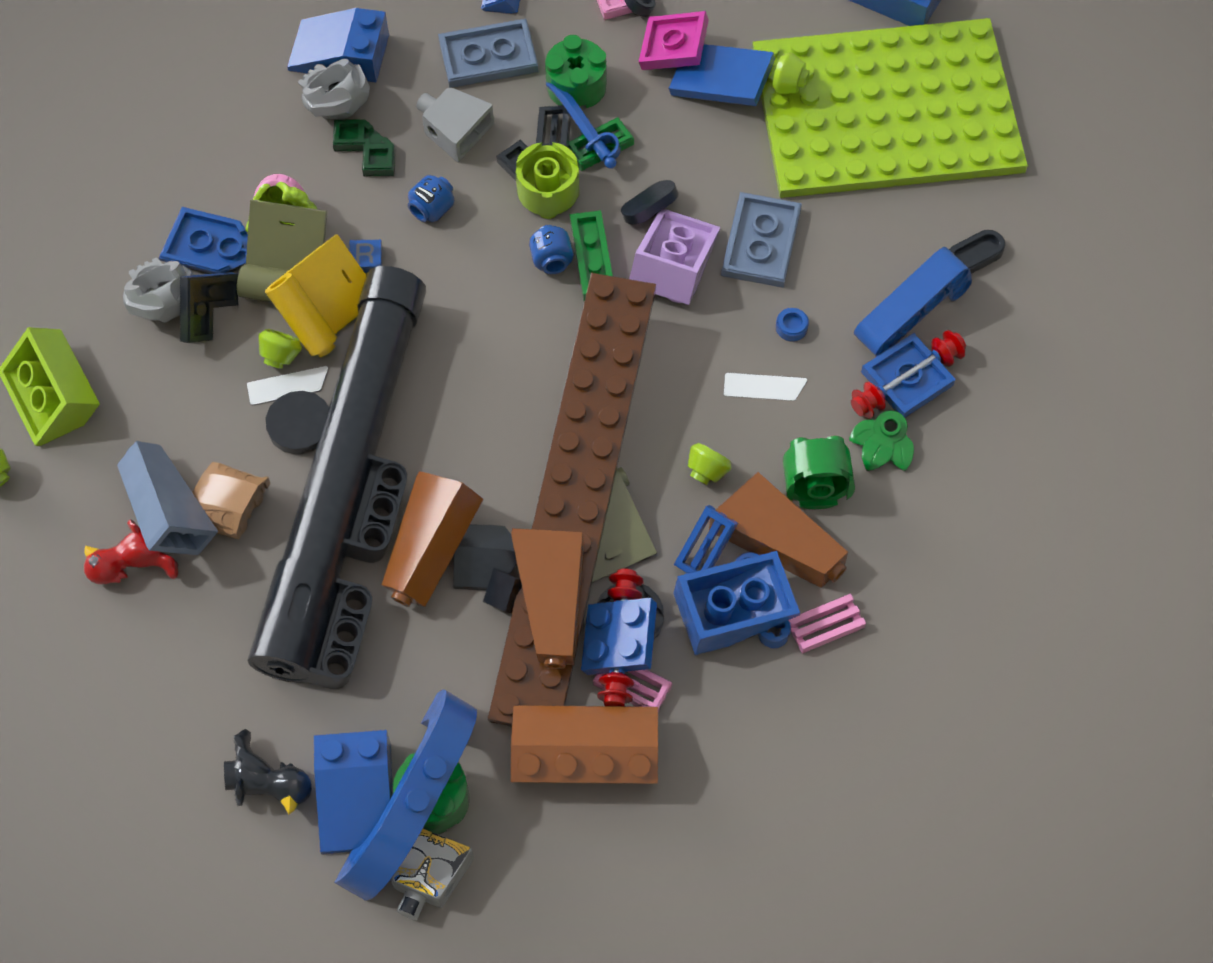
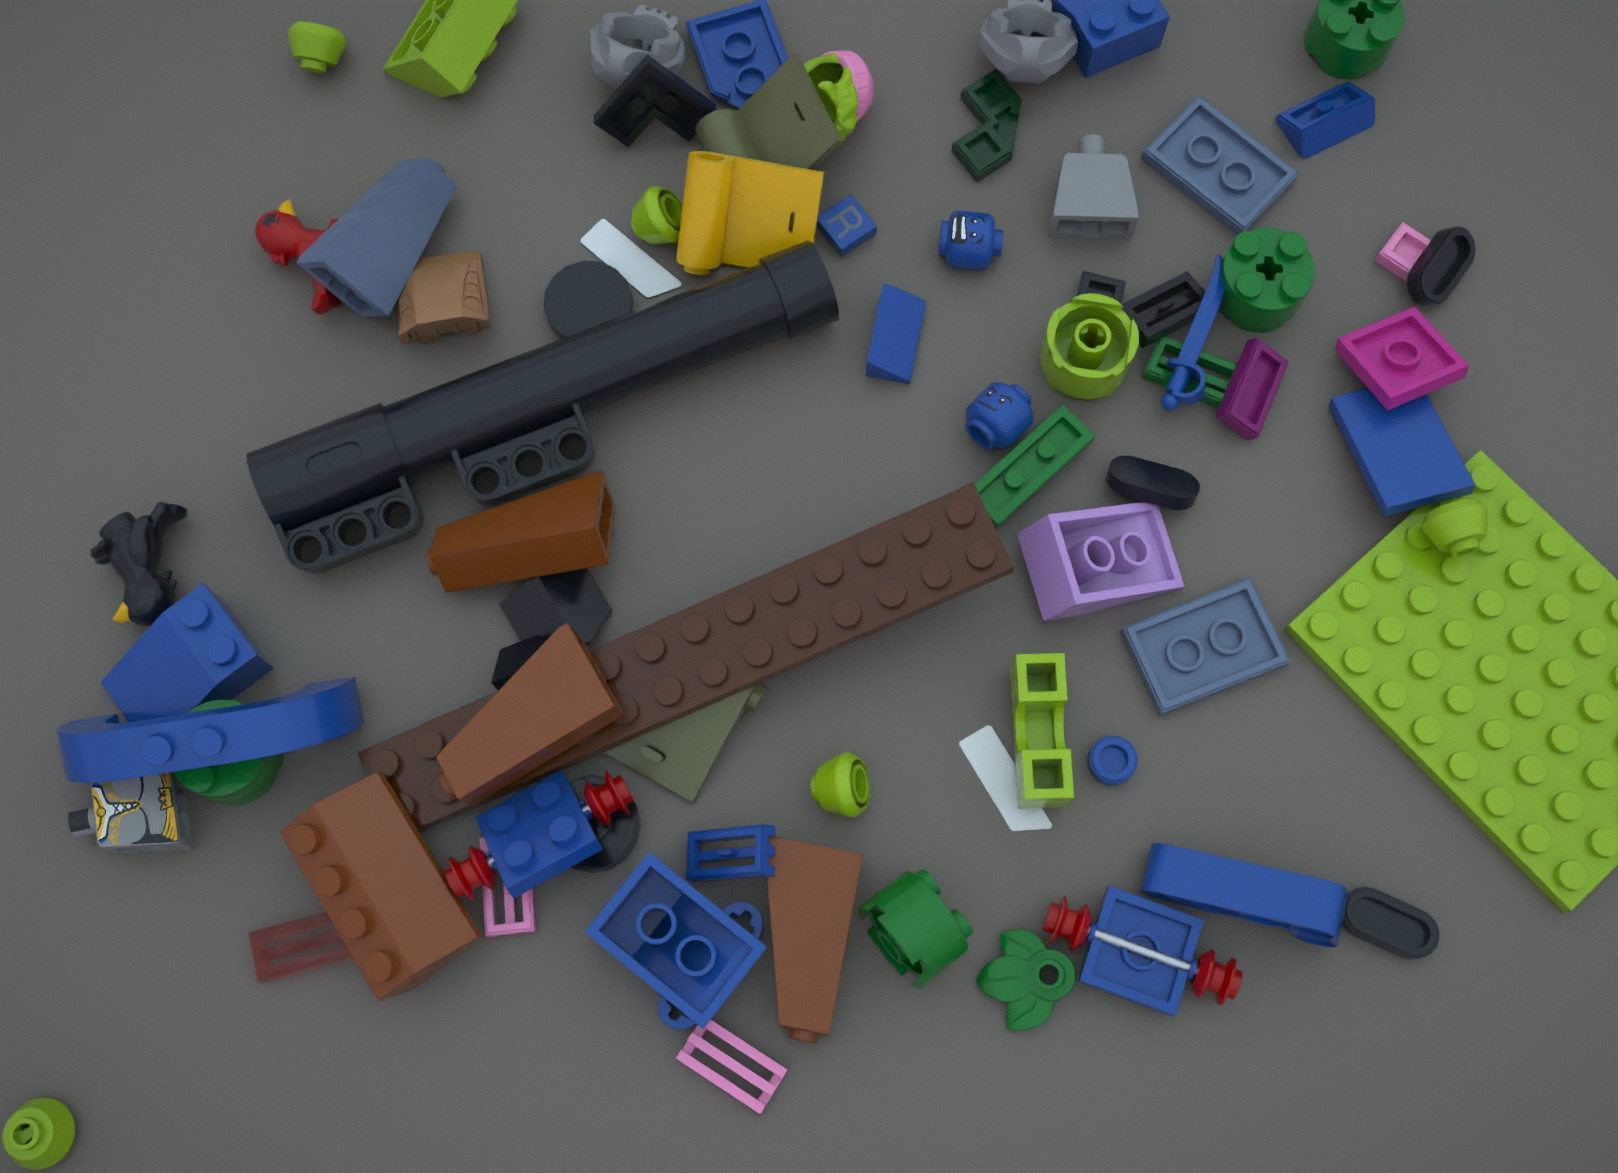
camera: 55 degrees right, 10 degrees up
(455, 274) = (895, 335): none -> blue slope
(574, 851) = (260, 955): none -> clear red tile
(633, 121) = (1252, 389): none -> magenta tile
(729, 332) = (1040, 750): none -> lime arch

